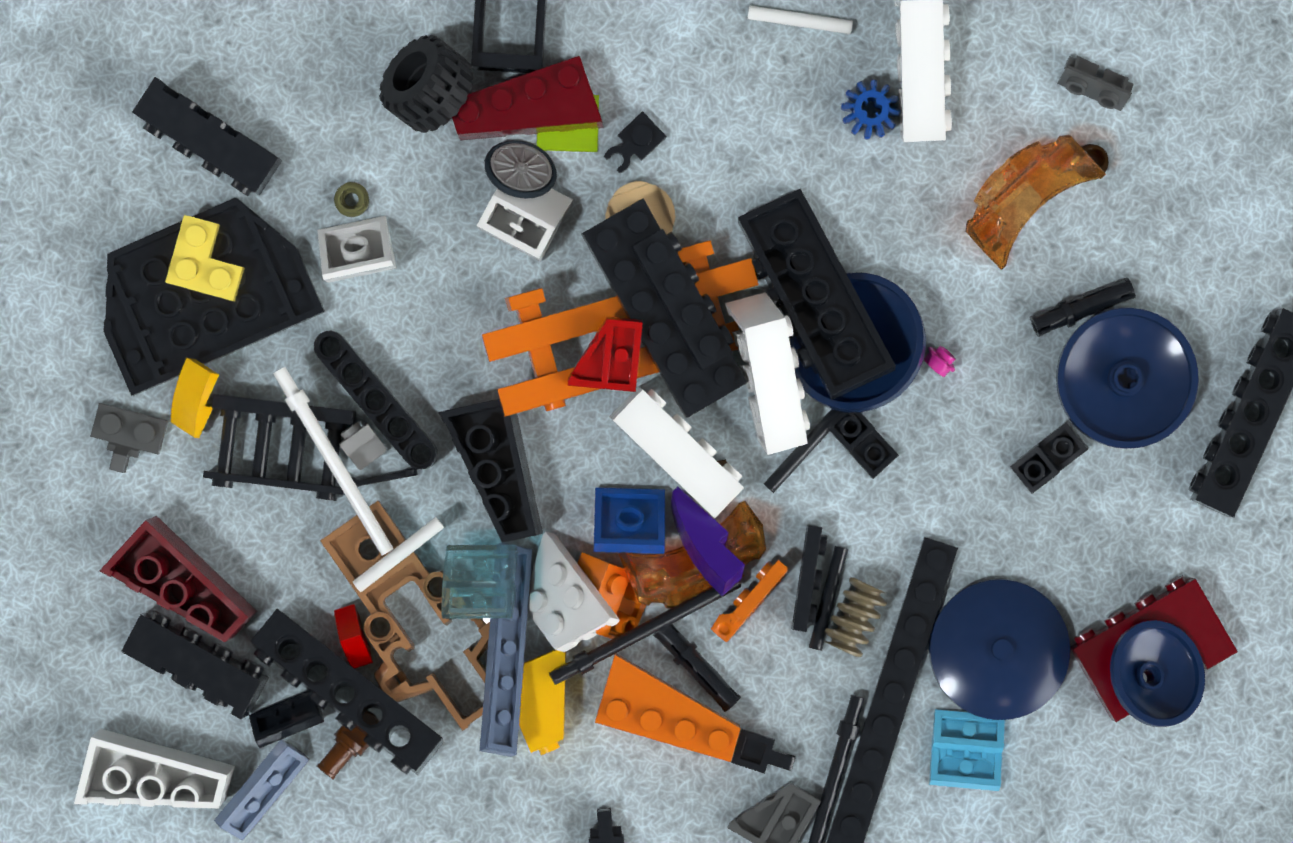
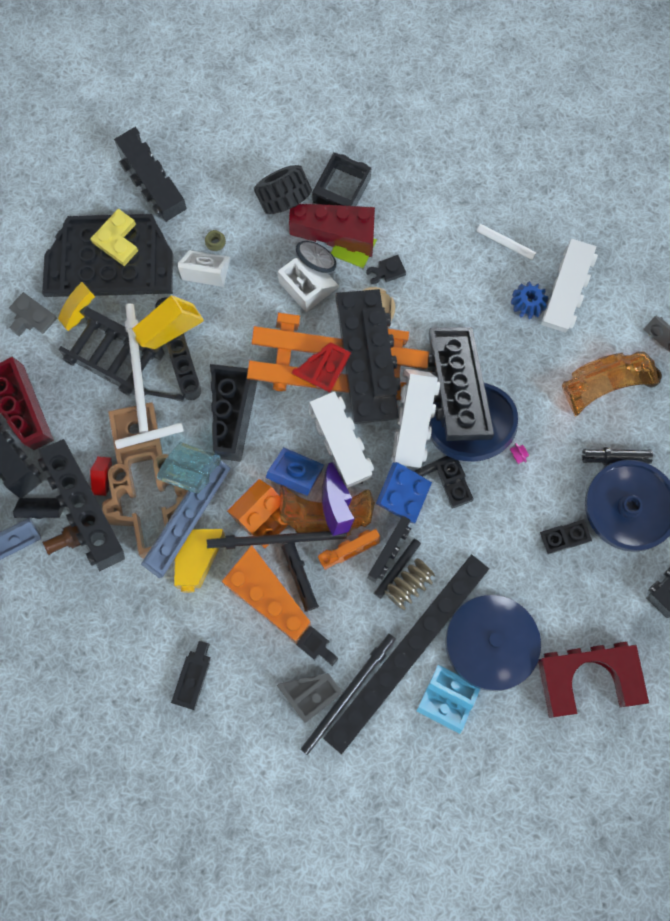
camera: 20 degrees right, 15 degrees down
(351, 378) = (167, 322): none -> yellow slope
(361, 445) = (158, 368): light grey bracket -> none
(564, 598) = (236, 499): white wing -> none
(797, 489) = (403, 492): none -> blue plate
(1172, 673) = (593, 693): dark blue dish -> none

